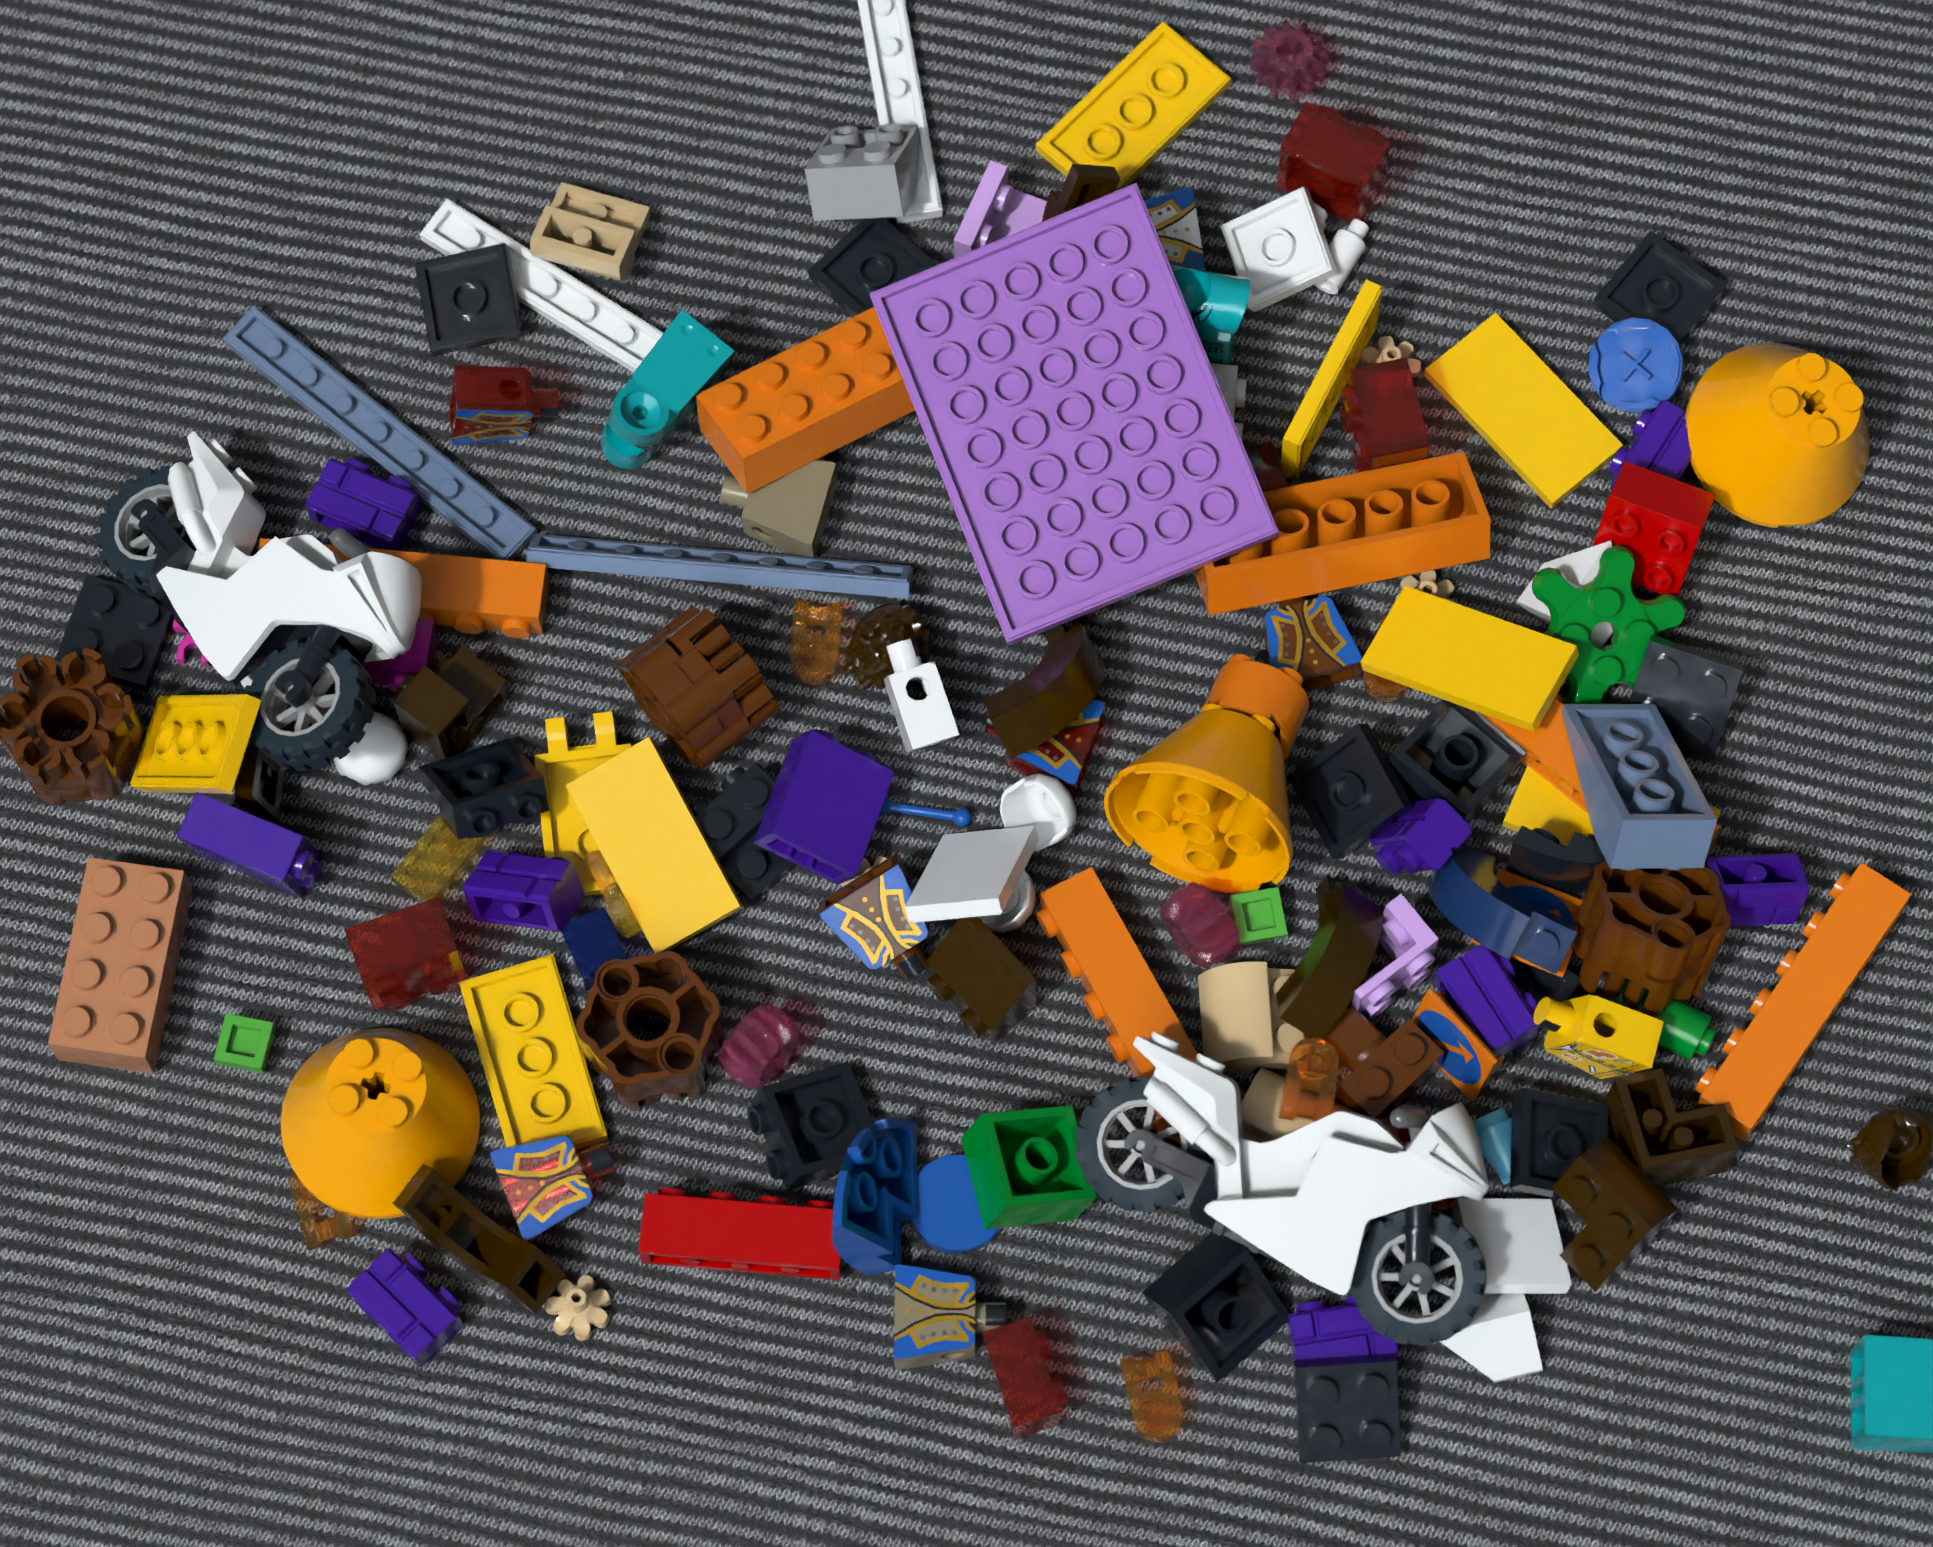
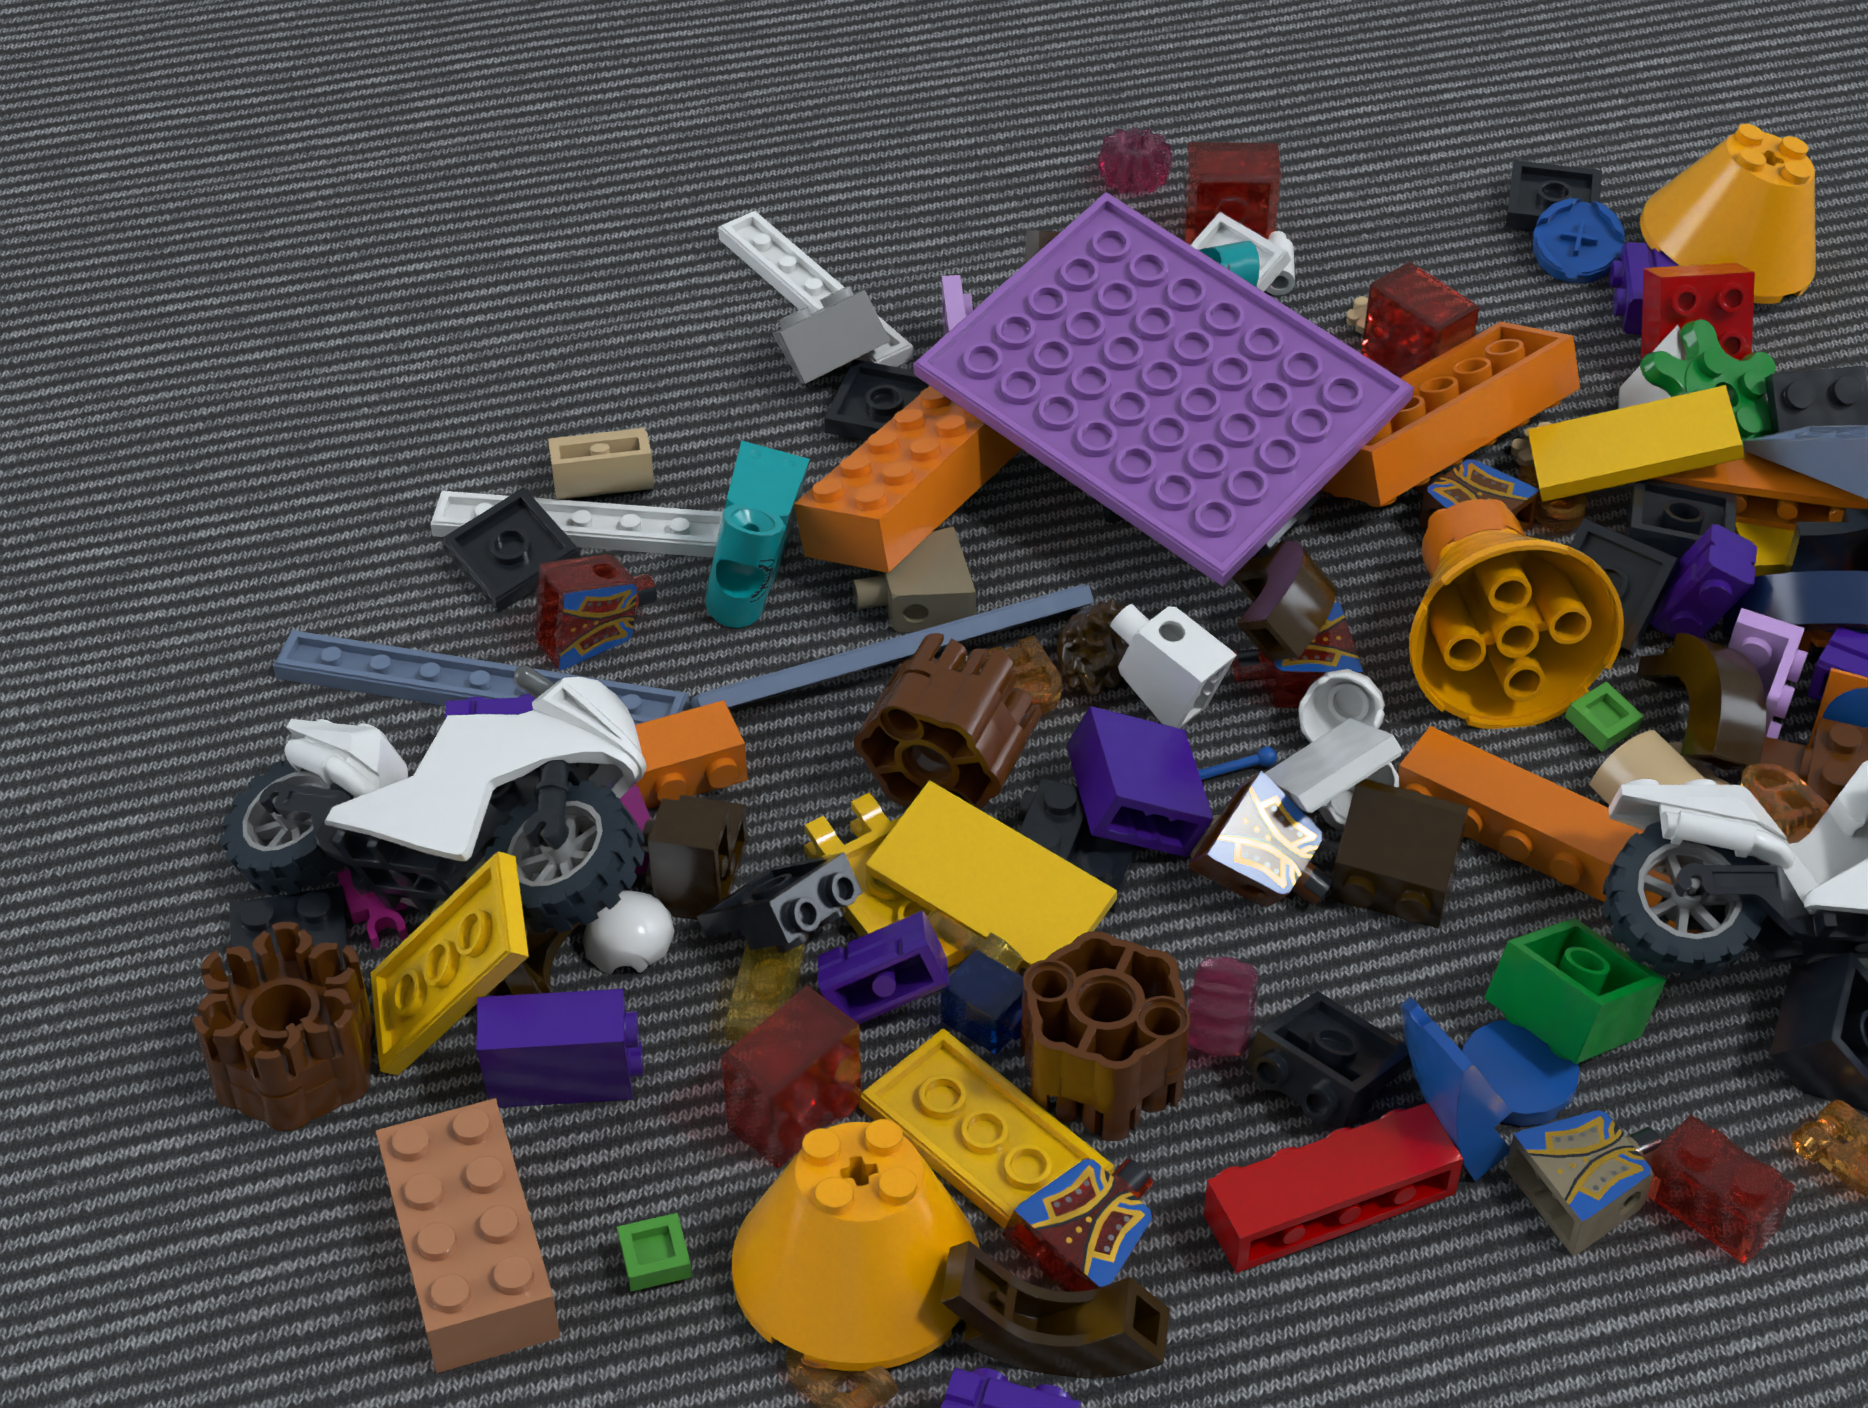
camera: 30 degrees left, 25 degrees down
(582, 1313) = (1198, 1348): tan plant -> none
(1136, 108) = (1021, 207): yellow tile -> none
(1199, 925) = (1564, 734): clear pink gear -> none
(1330, 380) = (1344, 294): yellow tile -> none
(1523, 410) = (1525, 299): yellow tile -> none

